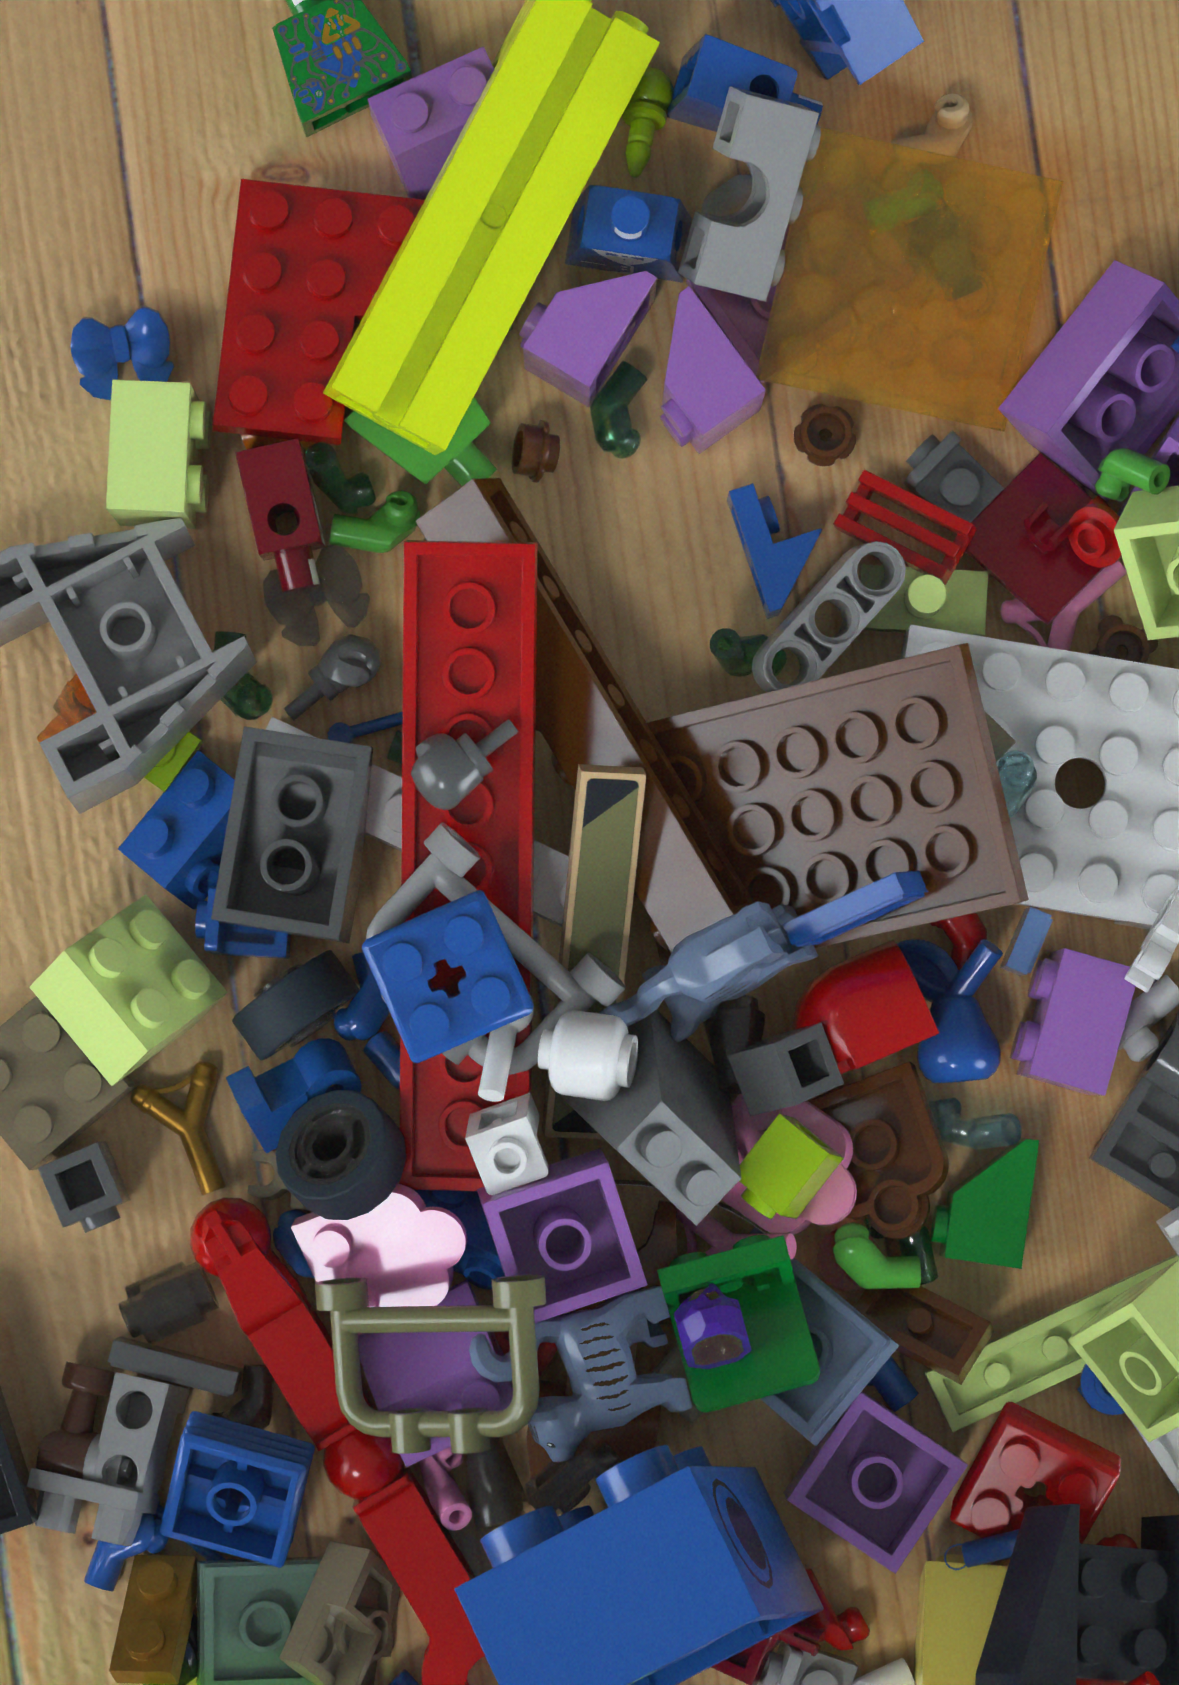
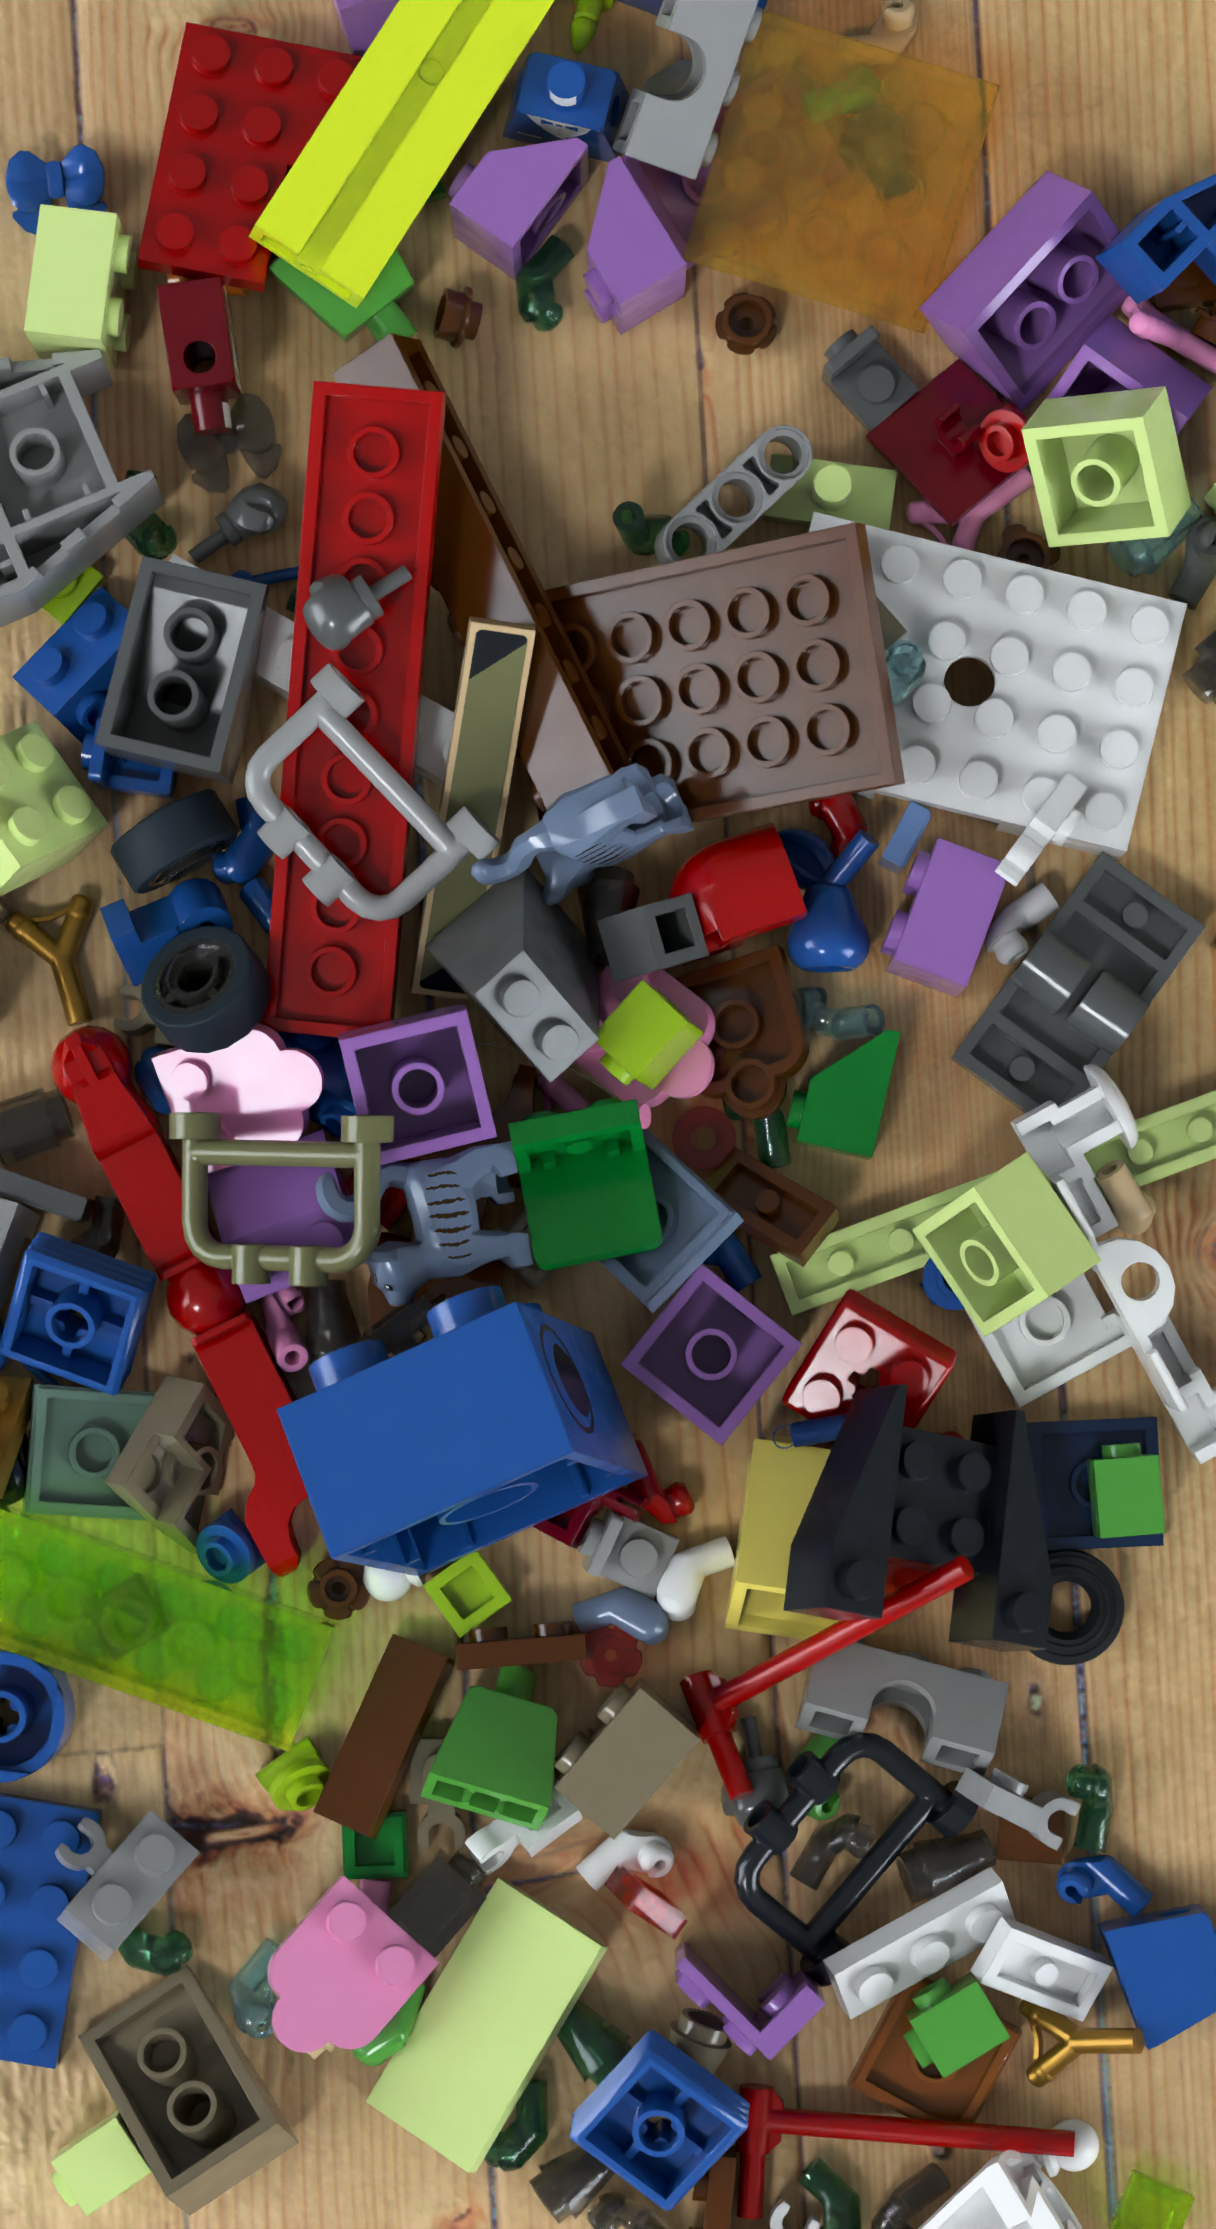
camera: 10 degrees right, 0 degrees up
(329, 477) = (251, 326): clear green arm -> none
(380, 531) = (296, 384): bright green arm -> none
(431, 1017) = (283, 792): blue brick -> none
(498, 1059) = (380, 857): white bar -> none
(507, 1144) = (369, 989): white bracket -> none
(588, 1055) = (456, 903): white head -> none
(711, 1329) = (557, 1187): dark purple rock -> none
(772, 565) = (688, 445): blue slope -> none
(856, 908) = (733, 779): blue tile -> none
(860, 503) = (776, 393): red tile -> none
(868, 1265) = (720, 1141): bright green arm -> none
(1127, 468) = (1041, 375): bright green arm -> none

